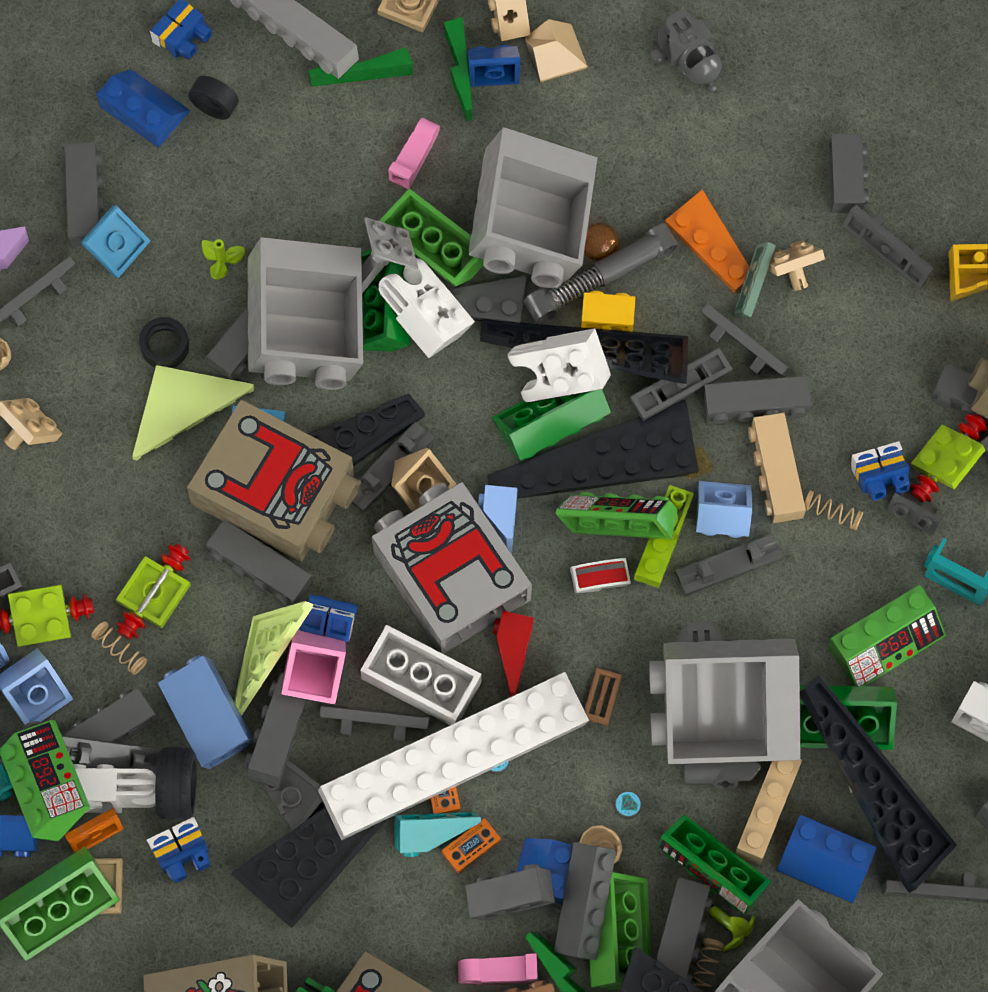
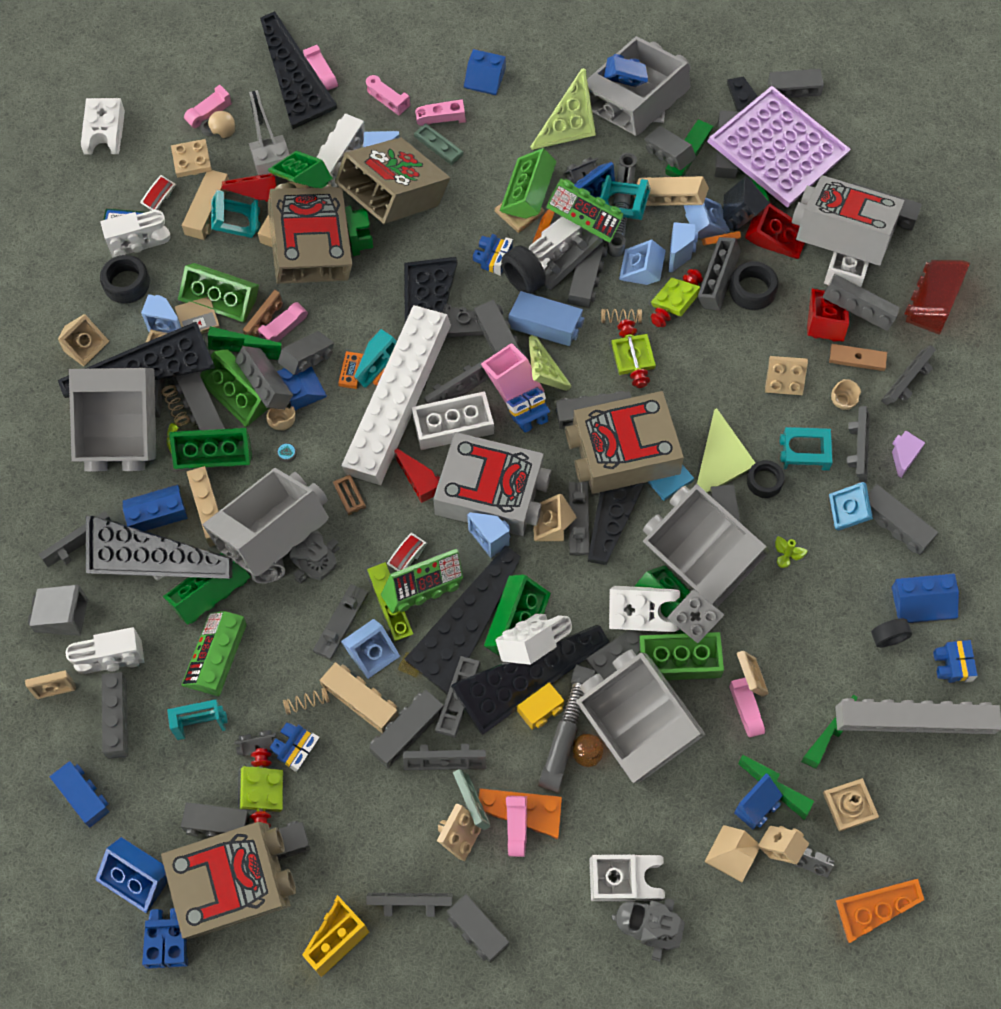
camera: 140 degrees right, 5 degrees down
(97, 362) = (791, 457): none -> teal panel
(382, 169) = (752, 673): none -> tan tile
(678, 104) = (630, 878): none -> white brick
(731, 225) = (517, 825): none -> bright pink leg

